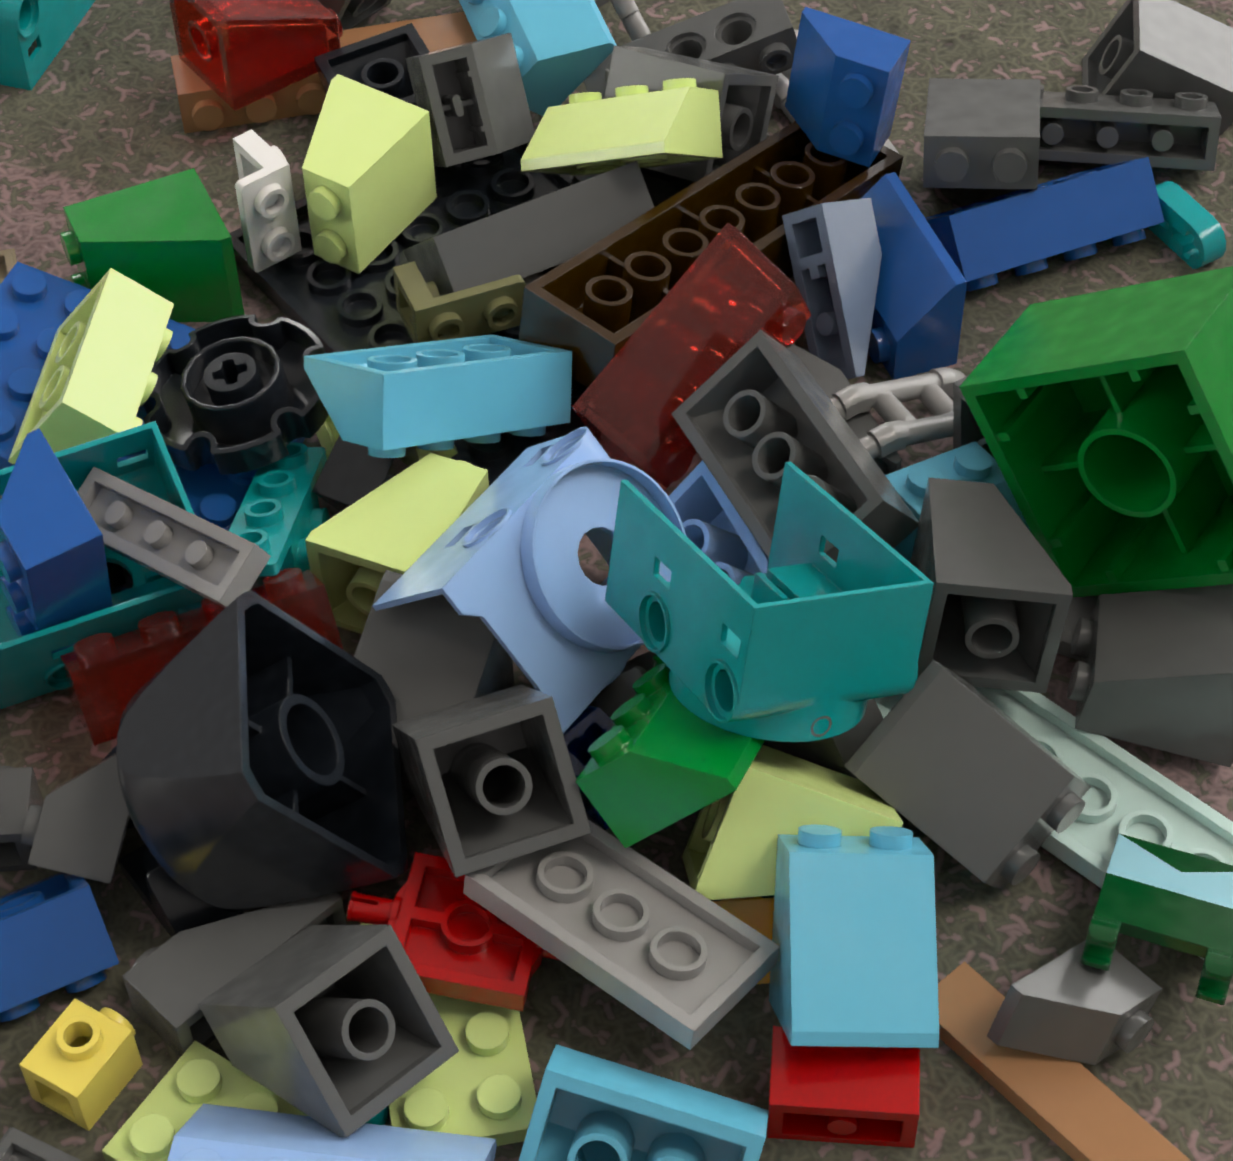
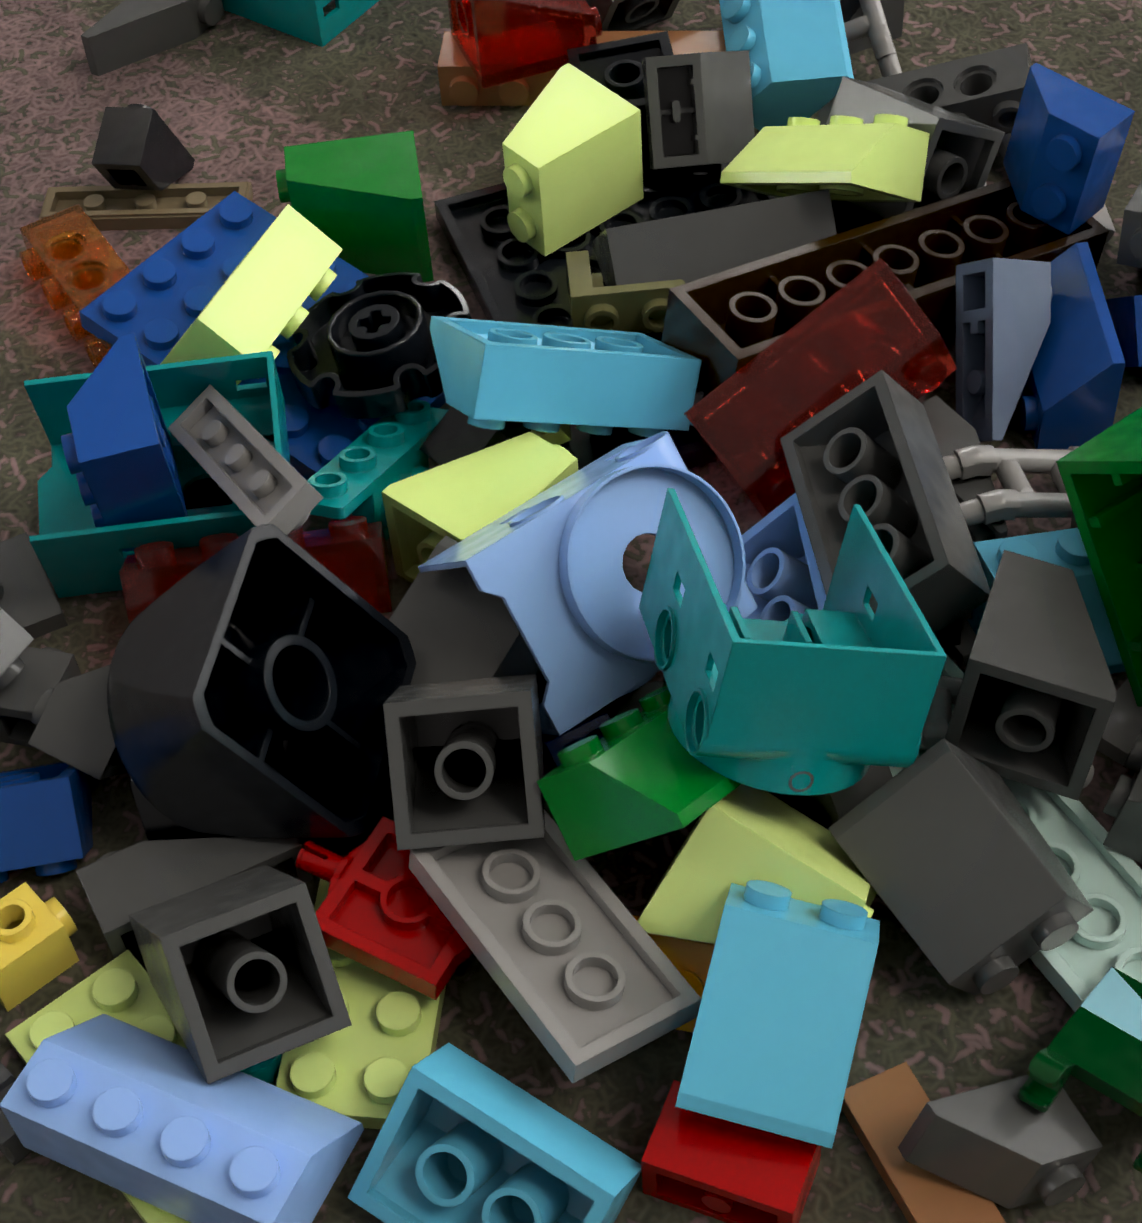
camera: 20 degrees right, 0 degrees up
(265, 202) = (469, 174): white bracket -> none

